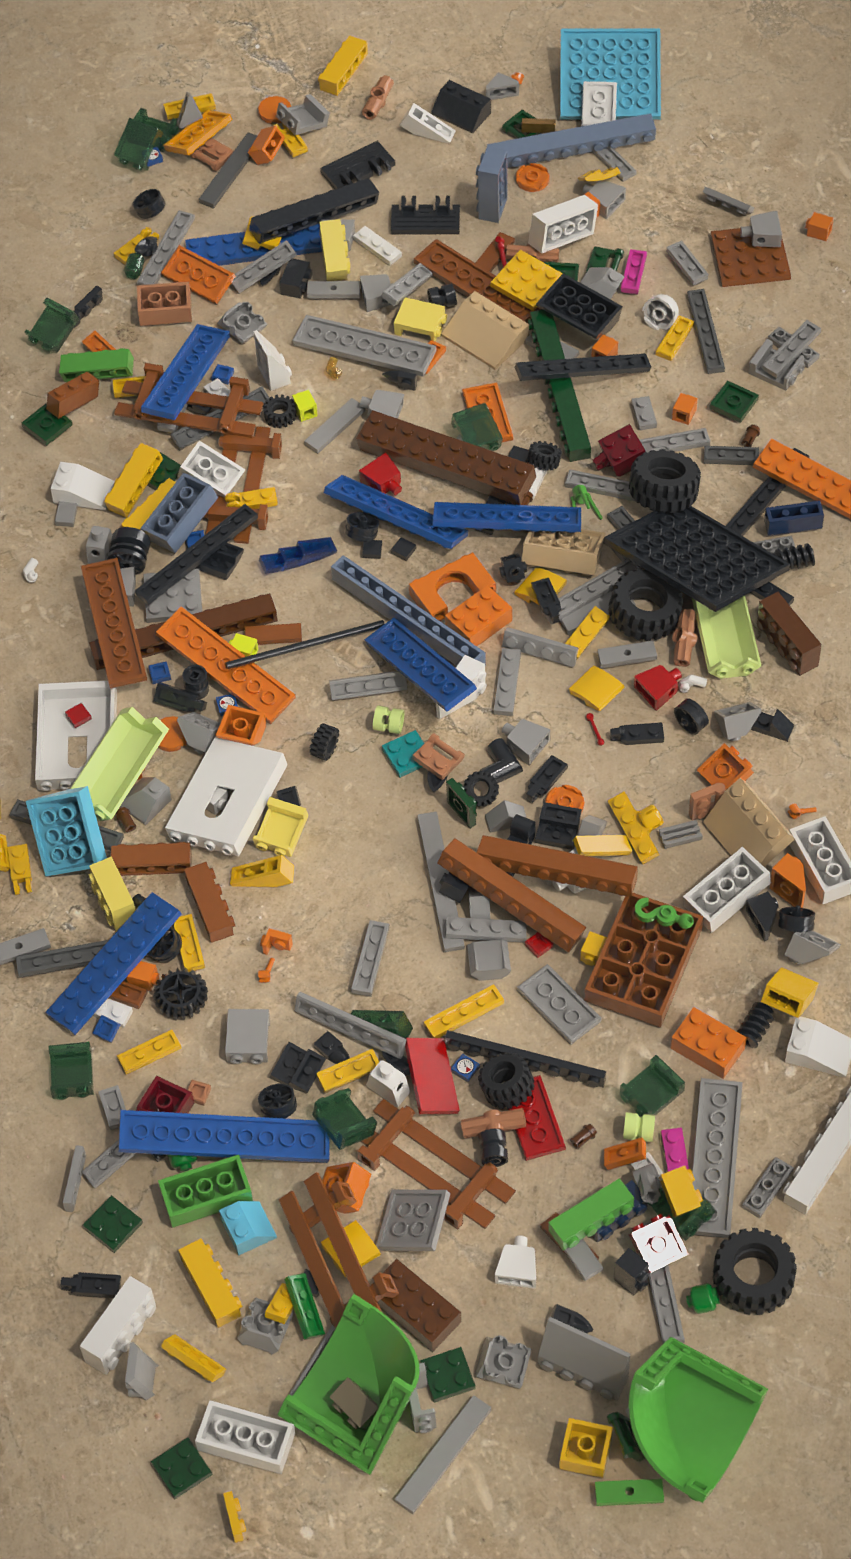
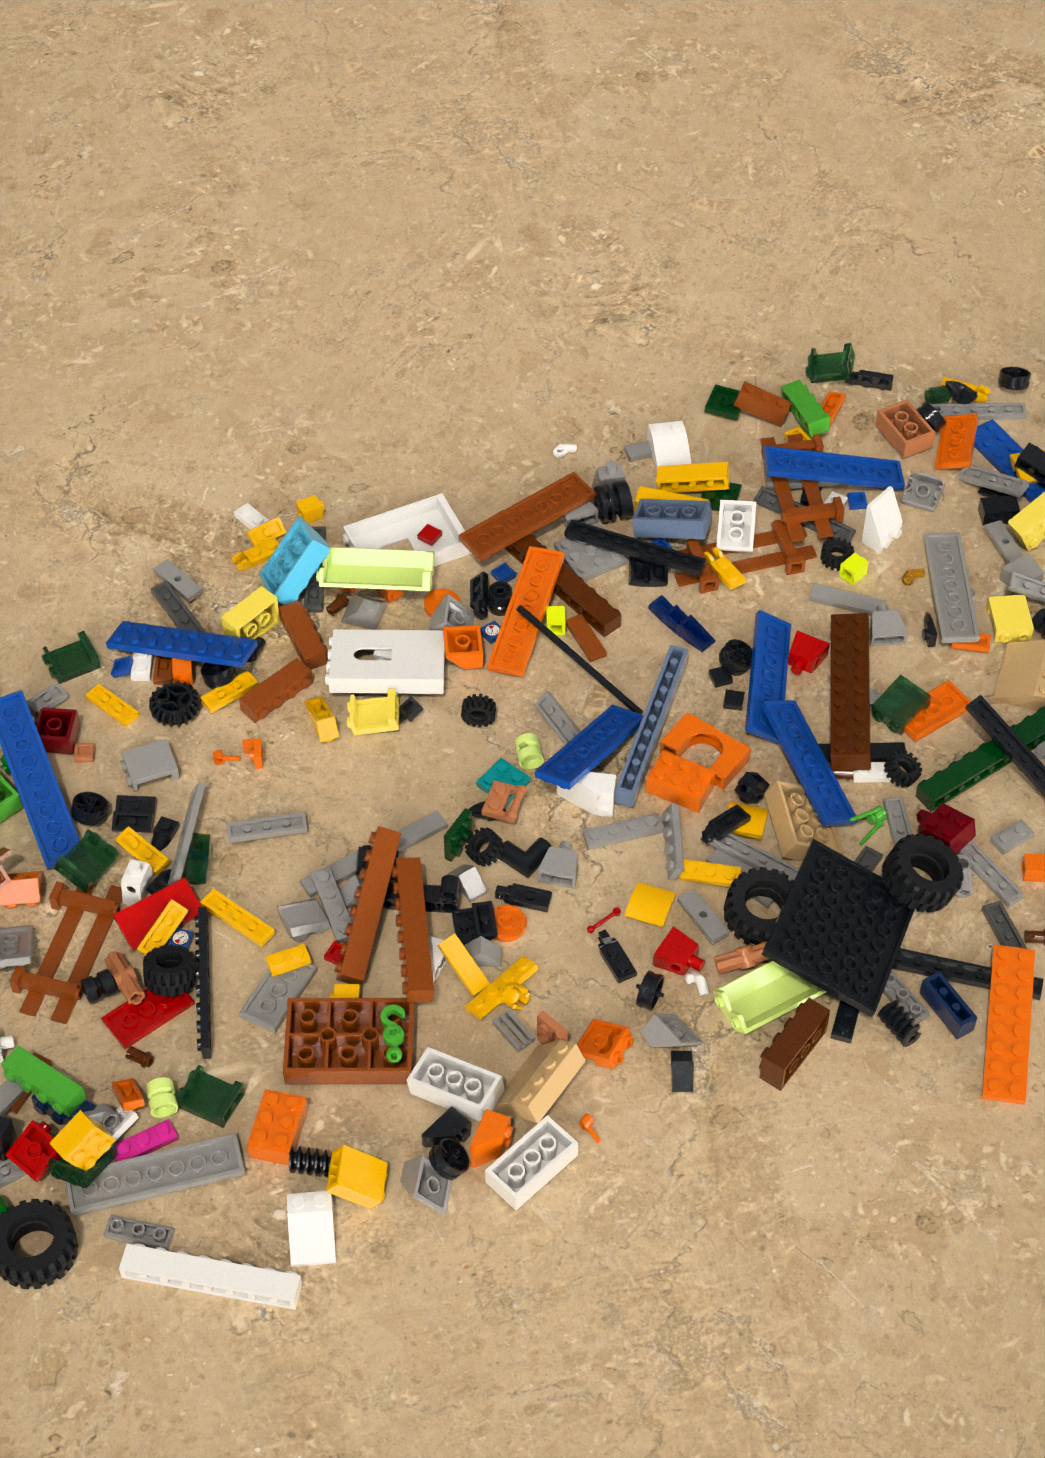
camera: 65 degrees right, 5 degrees down
(163, 276) = (932, 416): none -> black wheel
(454, 1076) = (163, 927): none -> yellow plate
(533, 983) = (288, 960): none -> yellow plate

